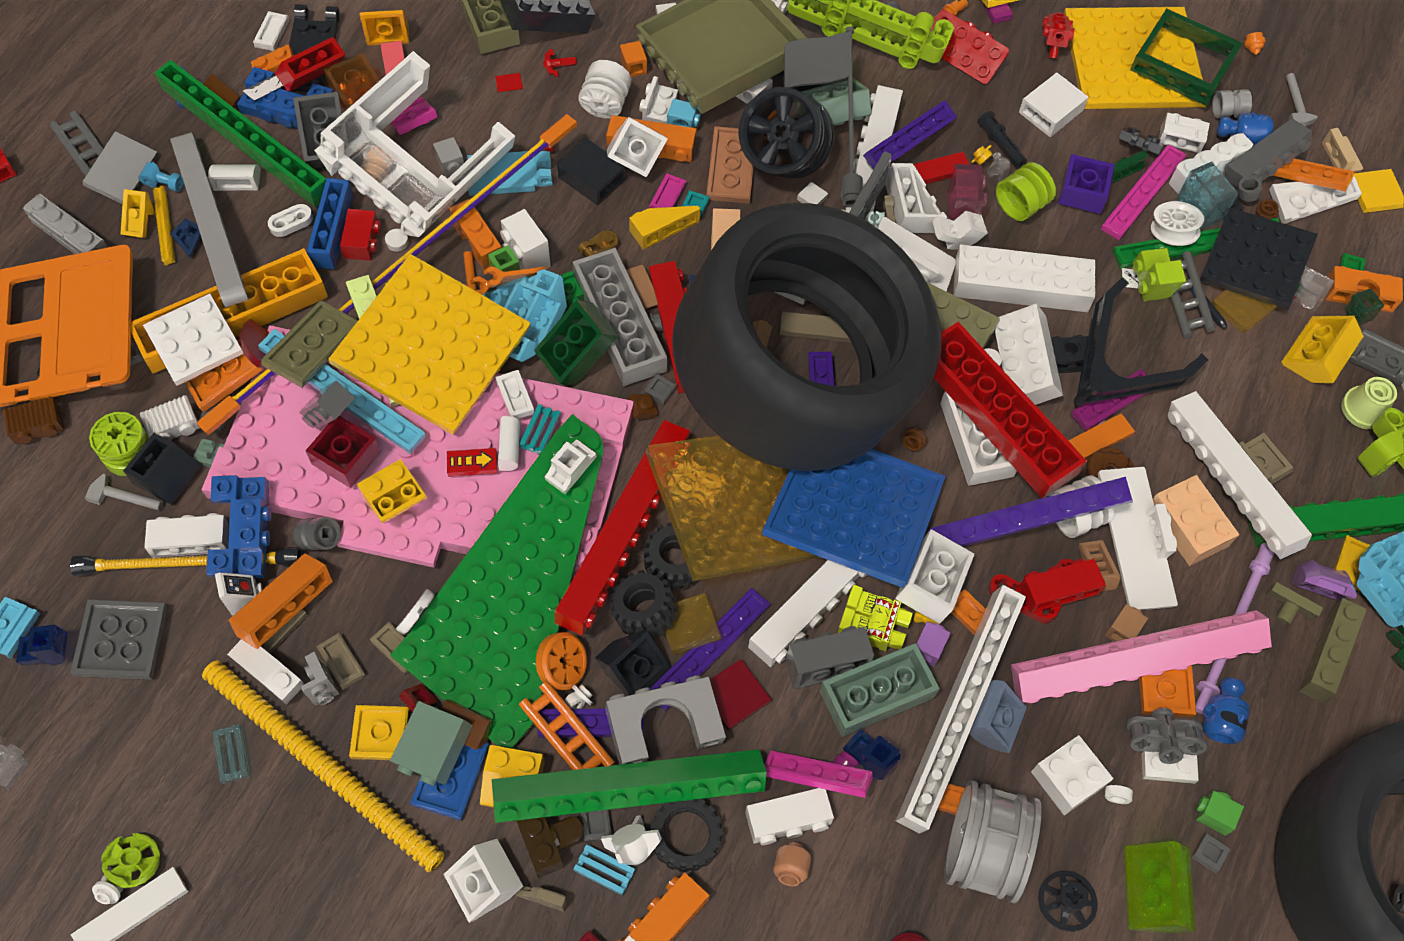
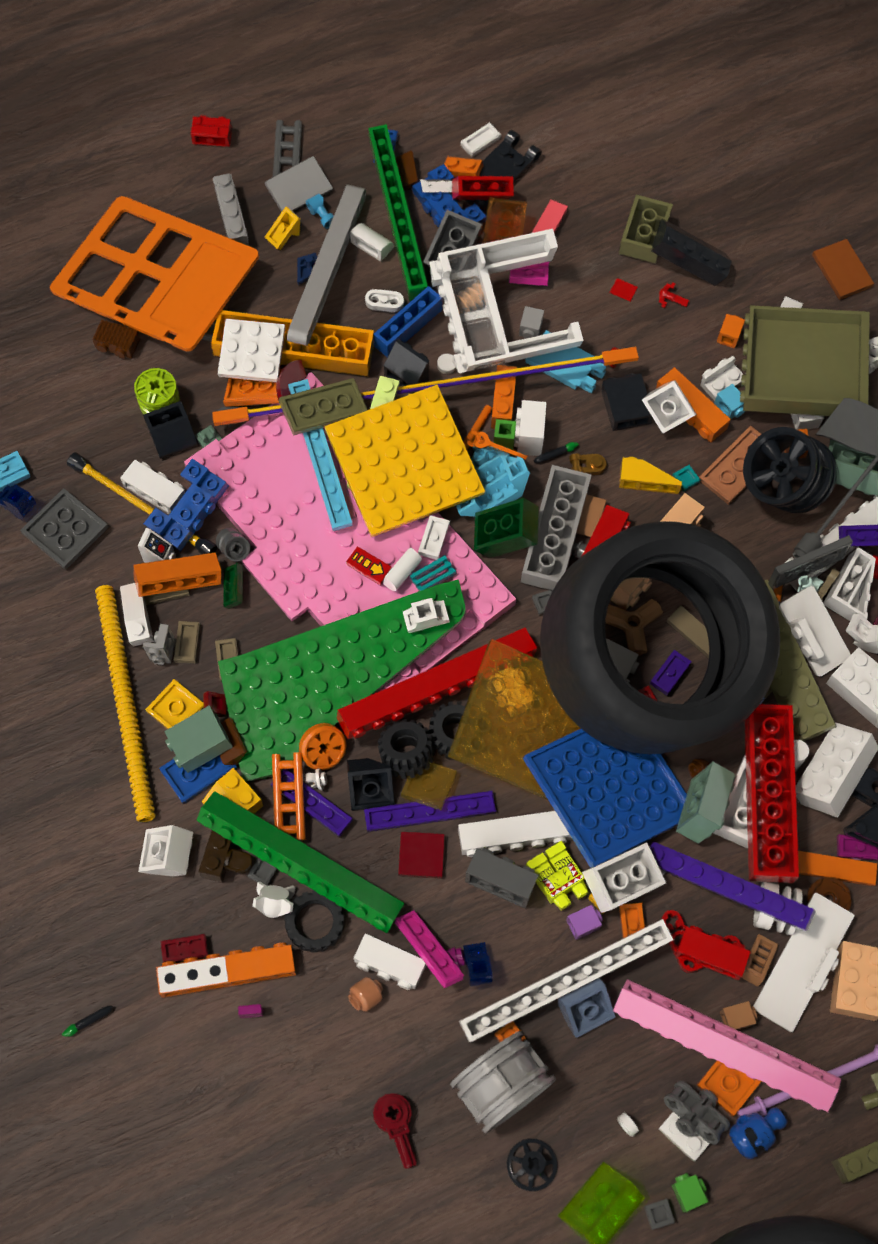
camera: 40 degrees right, 5 degrees up
(99, 490) = (124, 416): light grey piece -> none
(163, 225) = (298, 248): yellow axle -> none
(171, 419) = (200, 397): white brick -> none
(234, 775) = (62, 666): clear light blue tile -> none
(326, 405) = (297, 459): dark grey brick -> none
(343, 451) = (288, 498): dark red brick -> none
(347, 574) = (233, 585): none -> dark green plate
(360, 234) = (427, 339): red brick -> none
(361, 258) = (406, 365): none -> black slope
(385, 26) = (563, 188): light orange slope -> none
(391, 491) = (297, 549): yellow slope -> none
(414, 612) = (255, 643): white tile -> none
(543, 897) = (194, 891): dark tan tile -> none
(565, 250) = (556, 452): none -> black piece
(572, 289) = (536, 484): green brick -> none
(590, 875) = (237, 887): medium azure tile -> none
(605, 89) = (686, 343): white wheel -> none
(643, 406) = (521, 606): reddish brown plate -> none
(668, 192) = (671, 456): dark pink tile -> none
(692, 697) = (336, 813): light grey arch -> none
(812, 194) = (781, 531): white tile -> none
(878, 690) = (519, 925): sand green brick -> none
(950, 459) = (706, 803): none -> sand green brick
(1071, 775) = (605, 1085): white brick -> none

